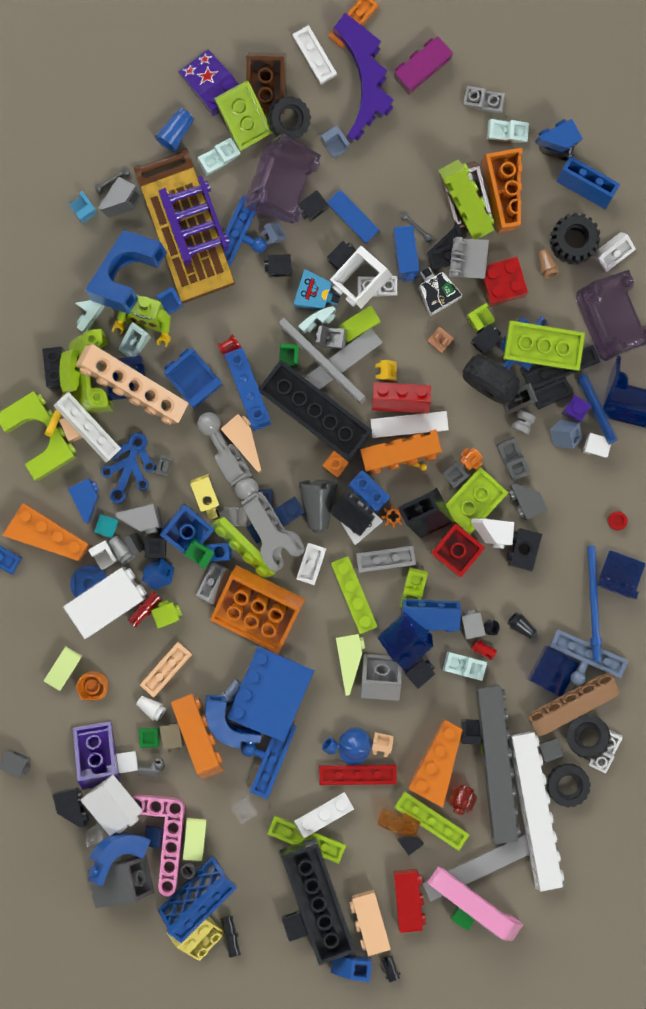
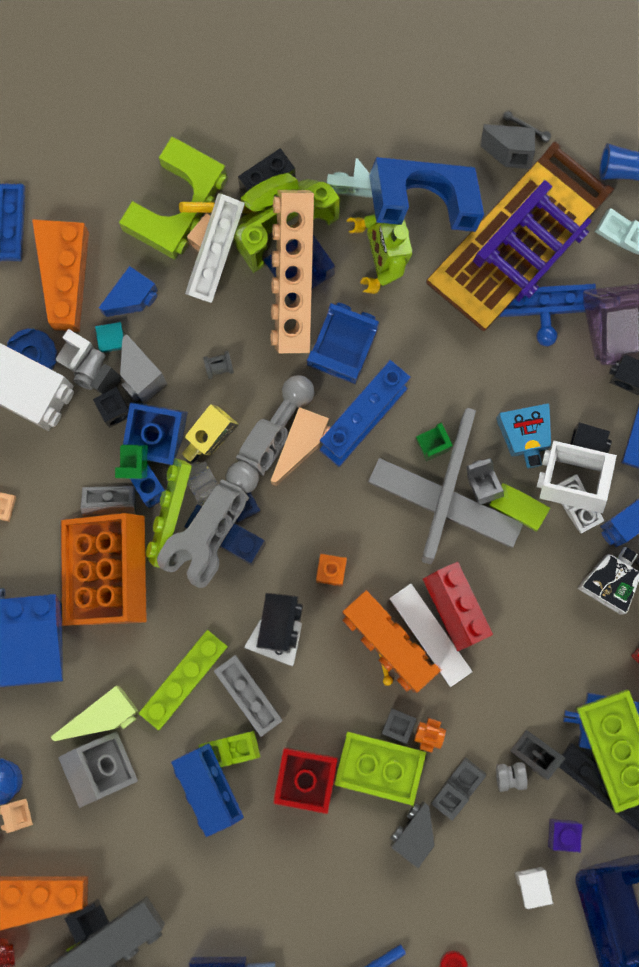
camera: 60 degrees right, 5 degrees down
(83, 208) = (474, 110): dark azure panel -> none
(129, 464) = (198, 326): blue plant -> none
(134, 341) = (349, 251): light aqua slope -> none
(144, 609) = (33, 435): red pin -> none
(158, 574) = (84, 428): blue panel -> none
(166, 614) = (40, 464): lime brick -> none
(170, 300) = (420, 266): blue panel -> none
(232, 340) = (400, 358): red bush -> none
(274, 232) = (572, 346): sand blue tile -> none
(278, 265) = (535, 372): black brick -> none
(311, 564) = (193, 606): white plate -> none
(314, 410) = (382, 508): black brick -> none
(318, 502) = (273, 573): dark grey cone -> none
(323, 316) = (504, 457): light aqua slope -> none
(369, 491) = (318, 628): blue panel -> none
(388, 370) = (481, 572): yellow tile -> none
(389, 521) = (297, 674): orange gear -> none
(406, 641) = (157, 776): clear blue slope -> none
(420, 673) = (127, 816): black brick -> none
(426, 513) = (331, 715): black slope -> none
(440, 340) = (555, 617): nougat tile -> none
(464, 666) = (166, 867): light aqua slope -> none
(472, 624) = (223, 849): light grey brick -> none
(480, 318) = (610, 652): lime panel -> none
(483, 649) = (199, 881): red pin -> none
(486, 339) = (588, 674): black brick -> none
(491, 379) = (542, 706): black tyre -> none
(491, 627) = (232, 875): black hinge -> none
(495, 531) = (354, 815): white slope -> none
(521, 625) = (255, 912): black cone -> none
(532, 540) = (369, 869): black brick -> none
(552, 393) = (568, 794): black tile -> none
(566, 434) = (526, 839): sand blue panel -> none
(596, 408) = (579, 863): blue axle -> none

